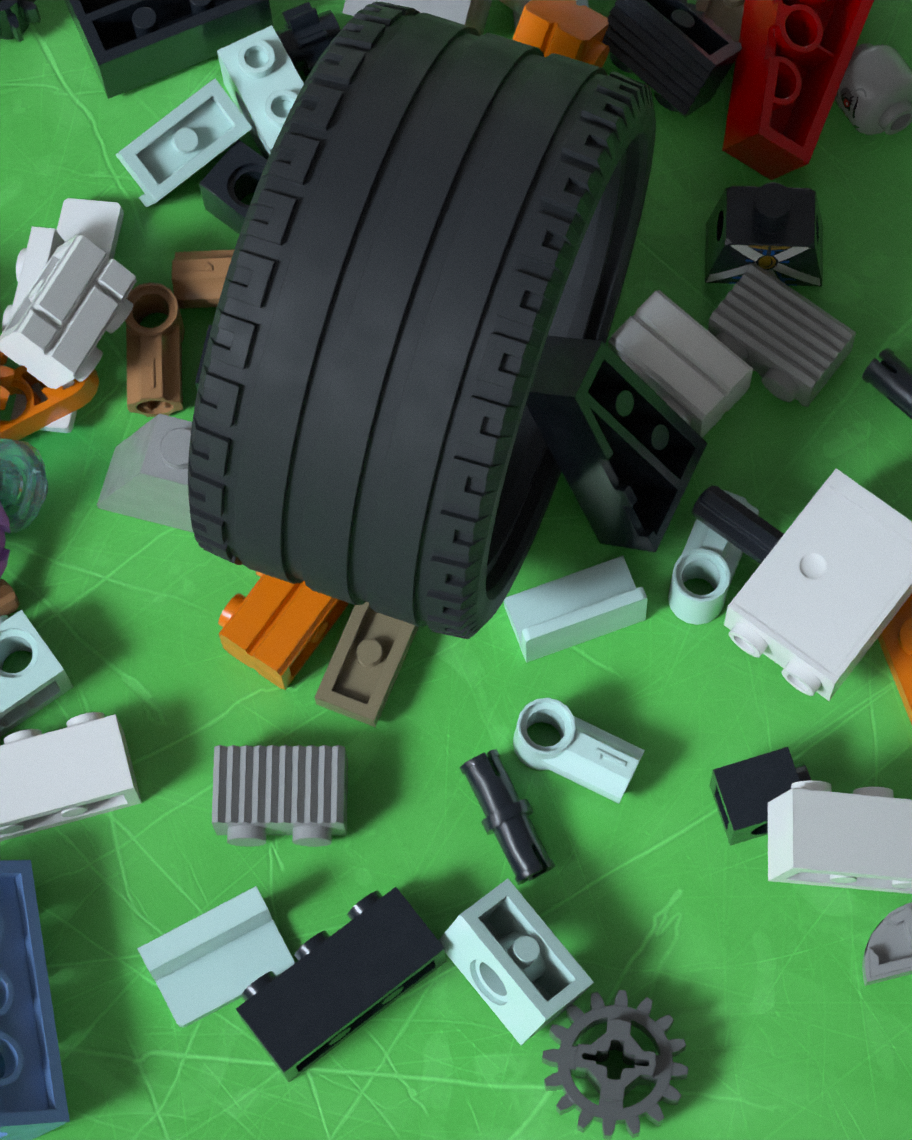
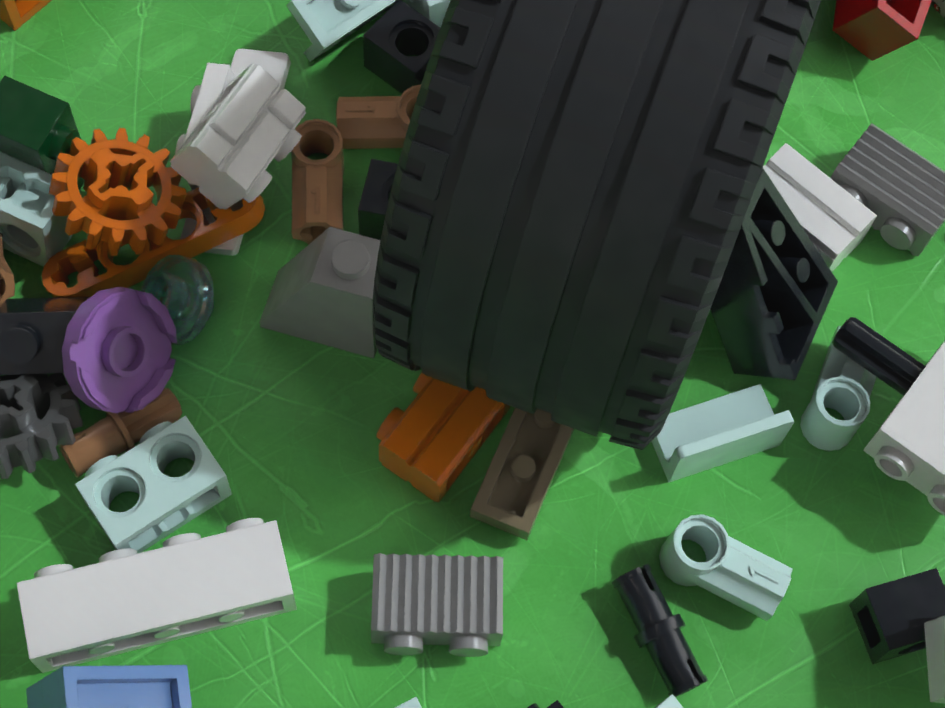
camera: 10 degrees left, 5 degrees down
(767, 227) = (880, 89): black torso -> none

